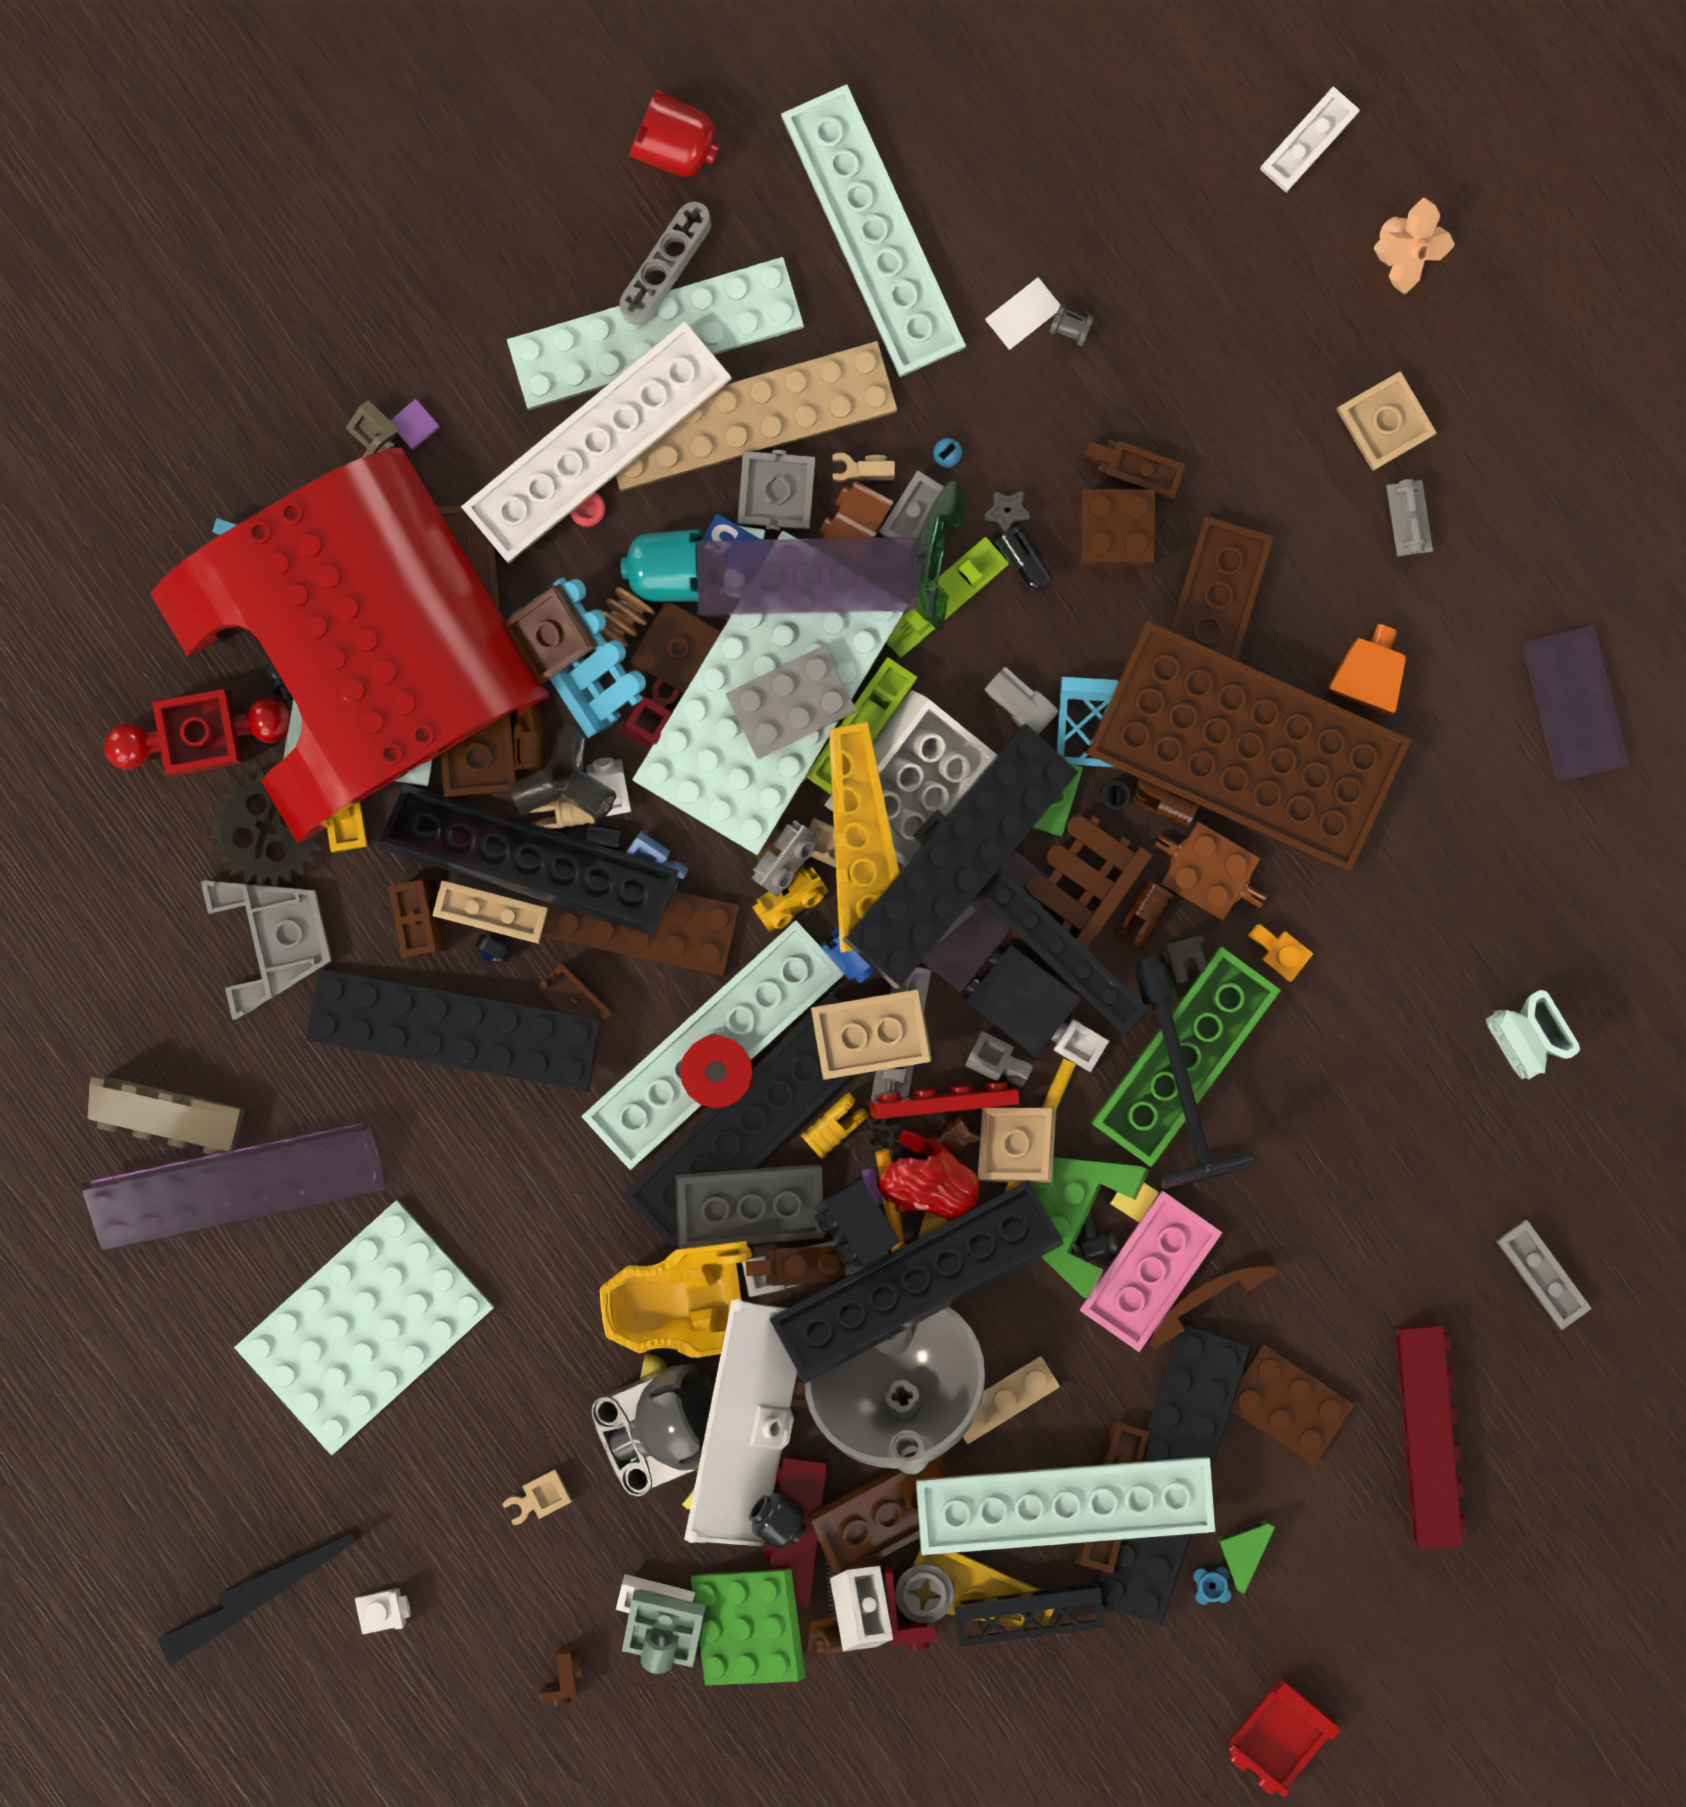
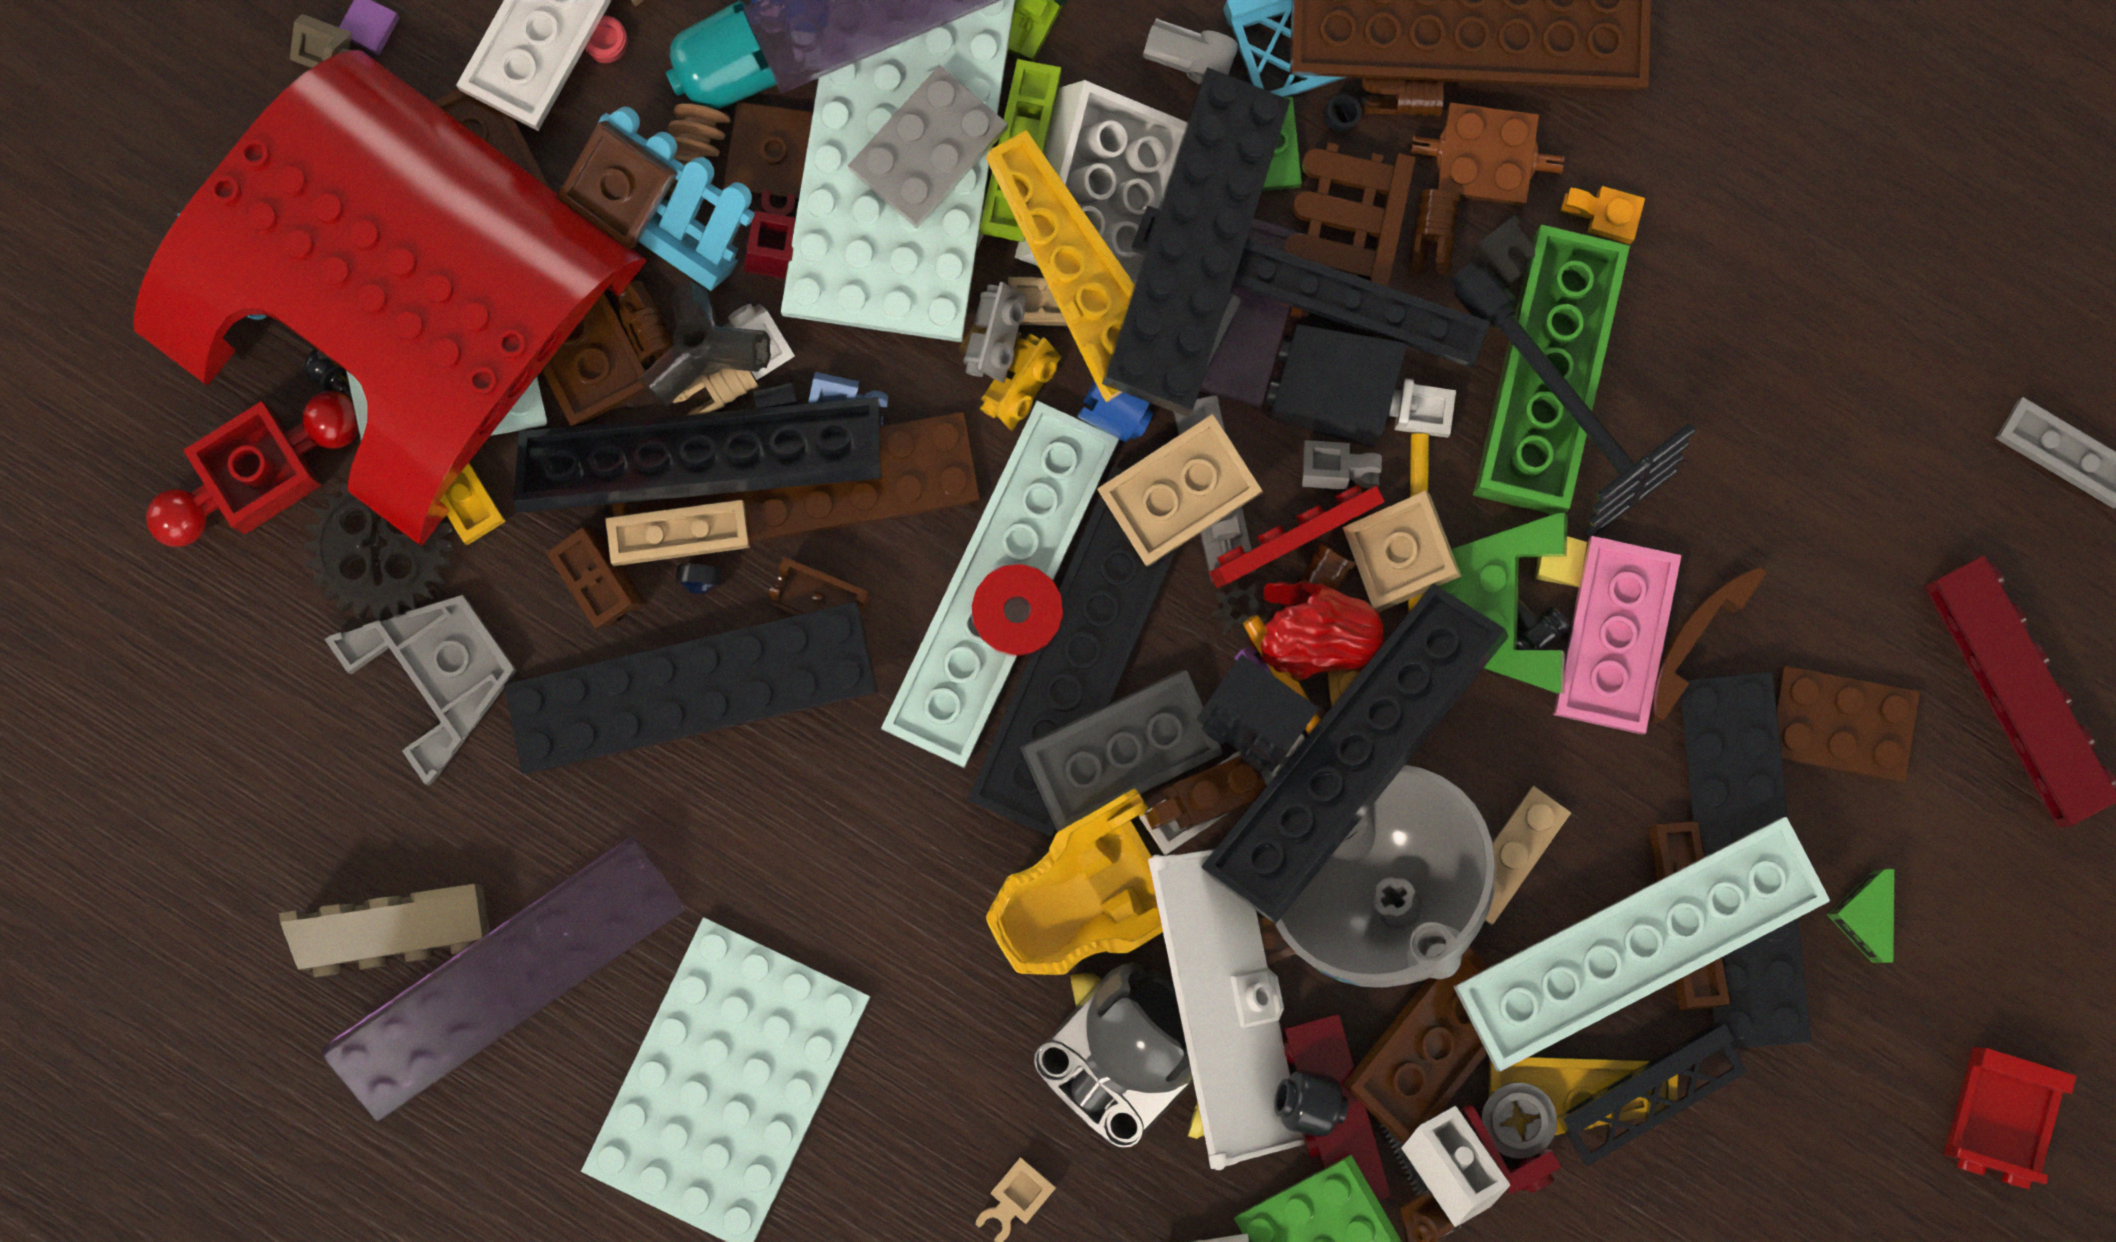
camera: 20 degrees left, 5 degrees down
(828, 1132) = (1177, 627): yellow hinge -> none
(1219, 1593) = (1861, 974): dark azure plate -> none
(1532, 1034) = (1937, 181): light aqua piece -> none

